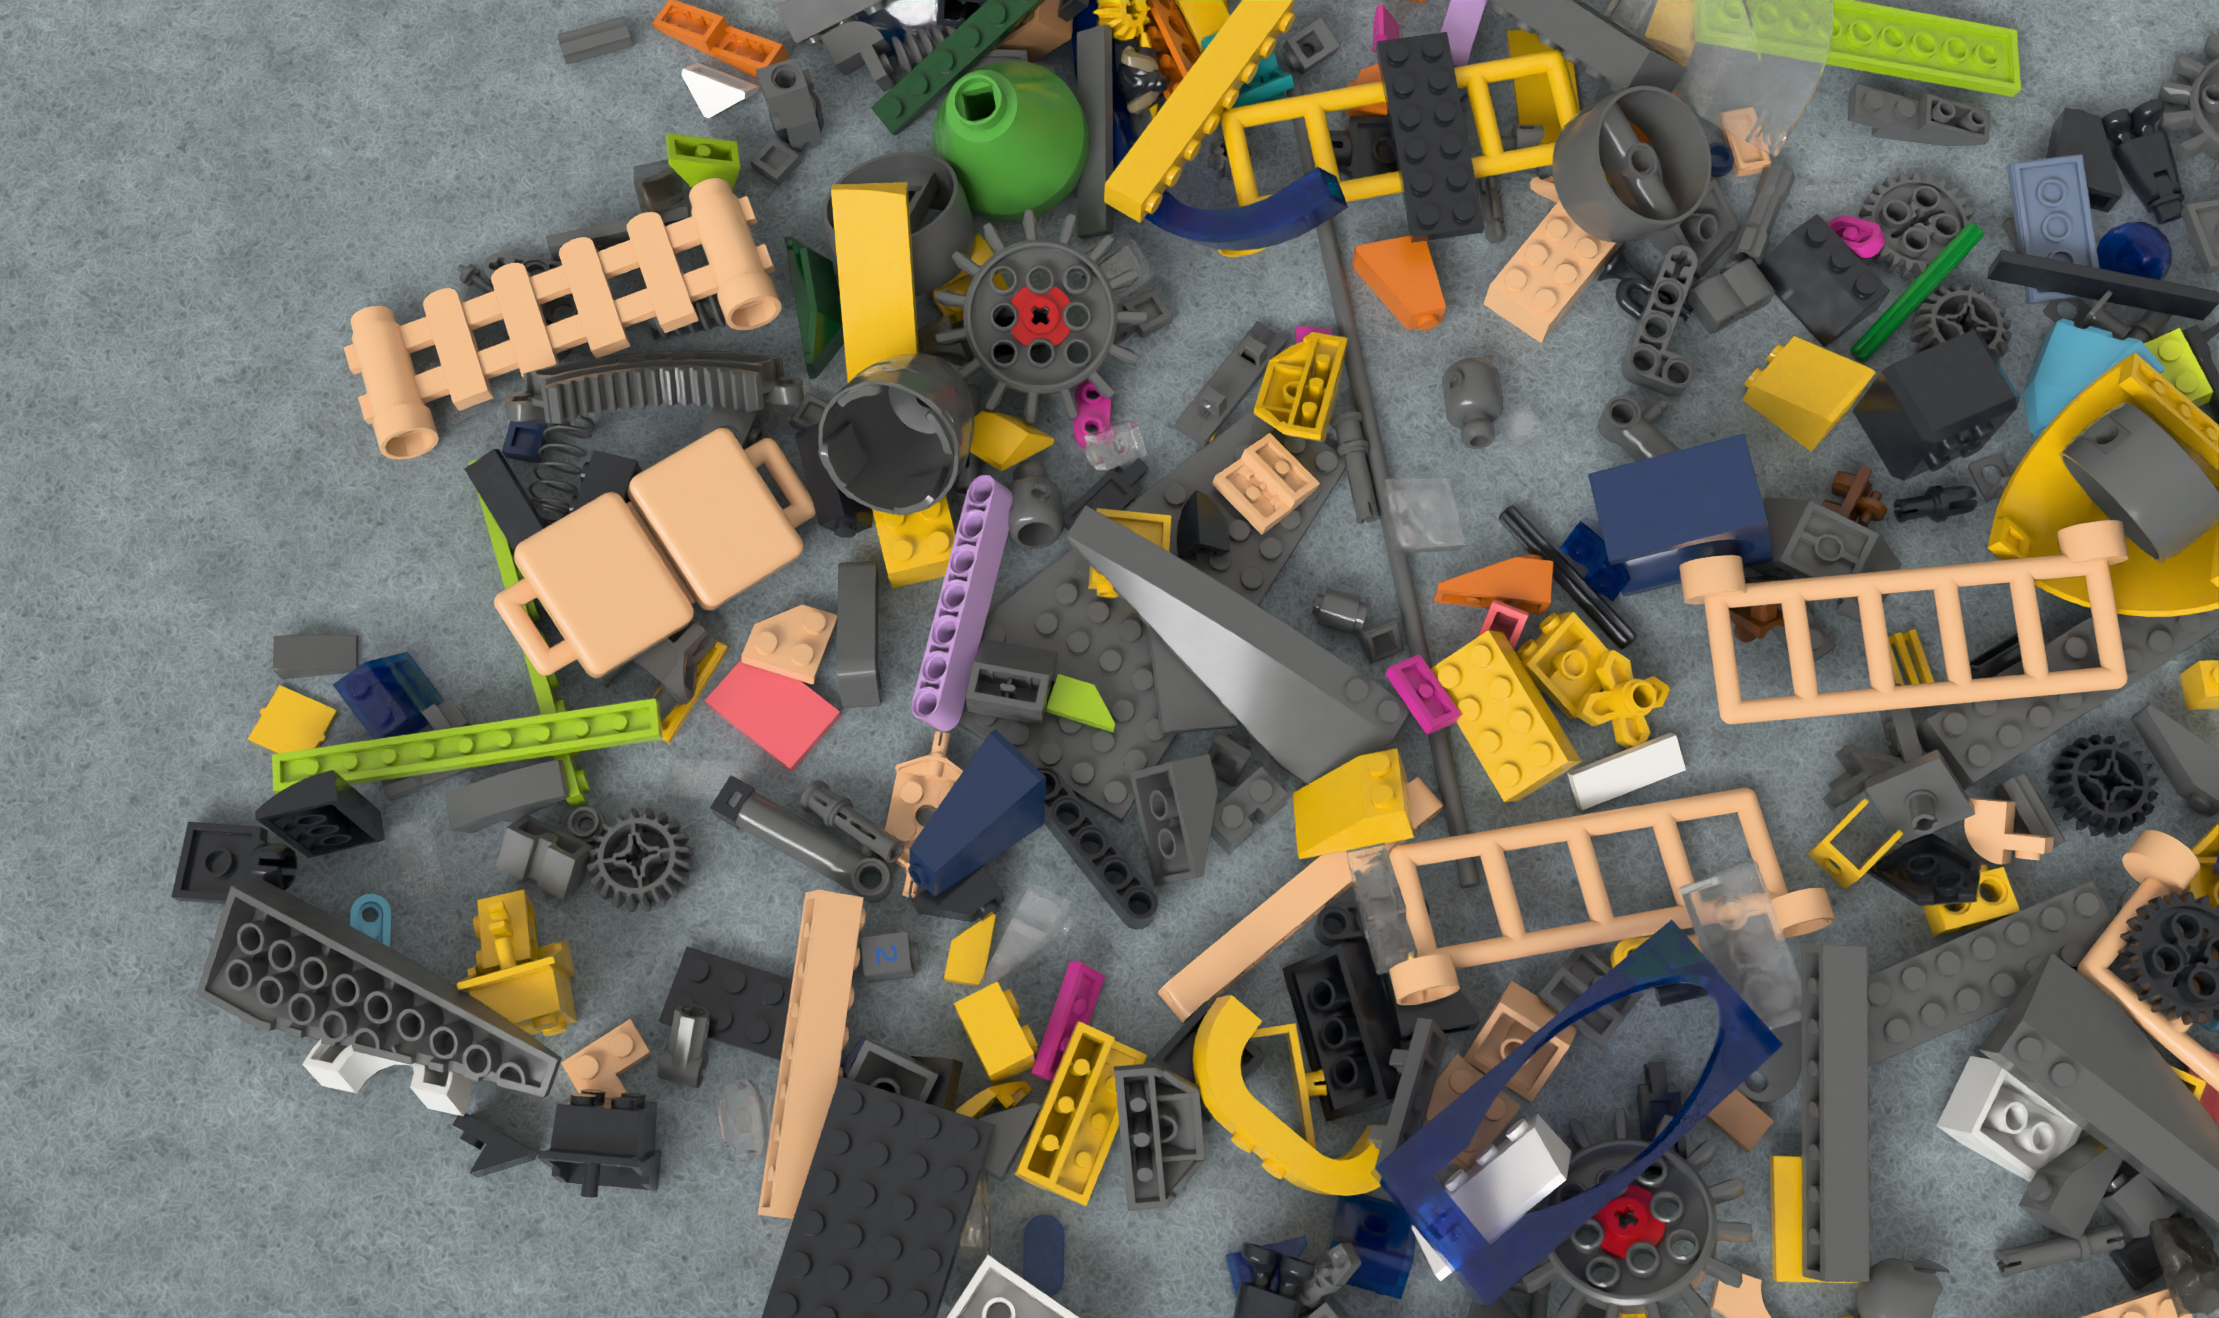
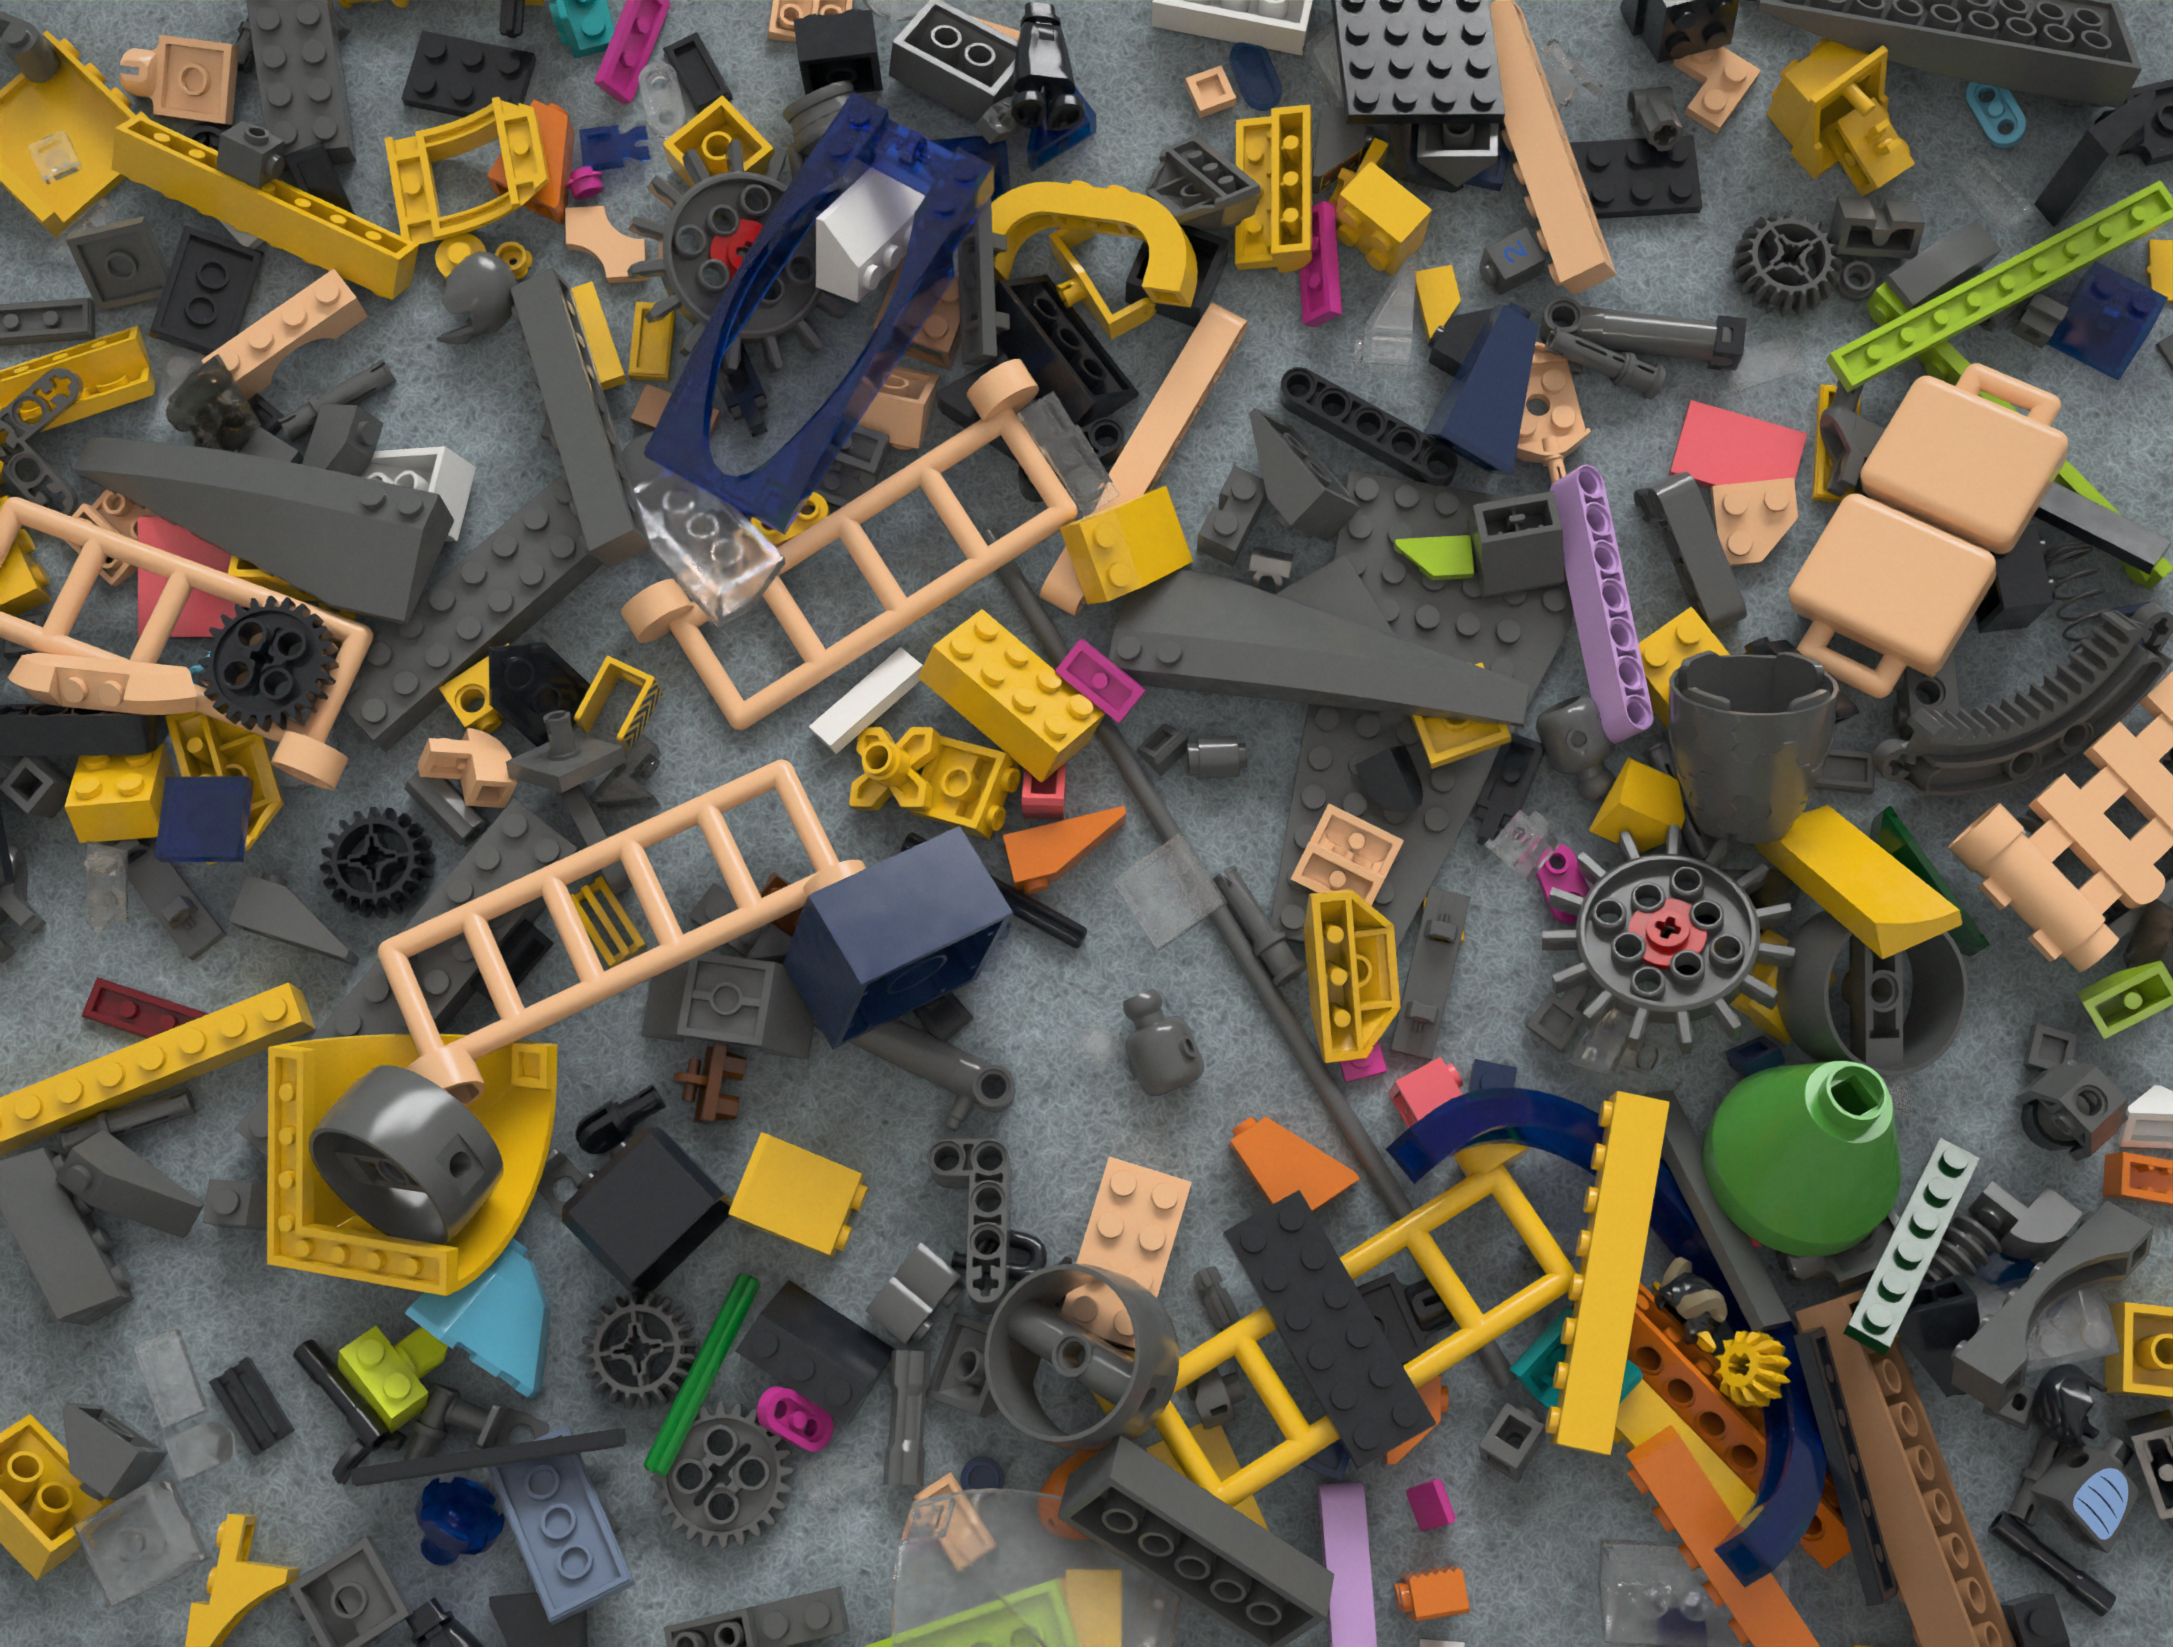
camera: 160 degrees right, 5 degrees up
(1009, 227) = (1755, 1056): none -> dark blue plate
(1098, 1249) = (1210, 91): none -> light nougat plate
(1217, 290) = (1491, 1075): none -> dark blue plate
(1278, 282) = (1425, 1090): none -> coral slope
(1750, 1174) = (651, 345): none -> yellow tile

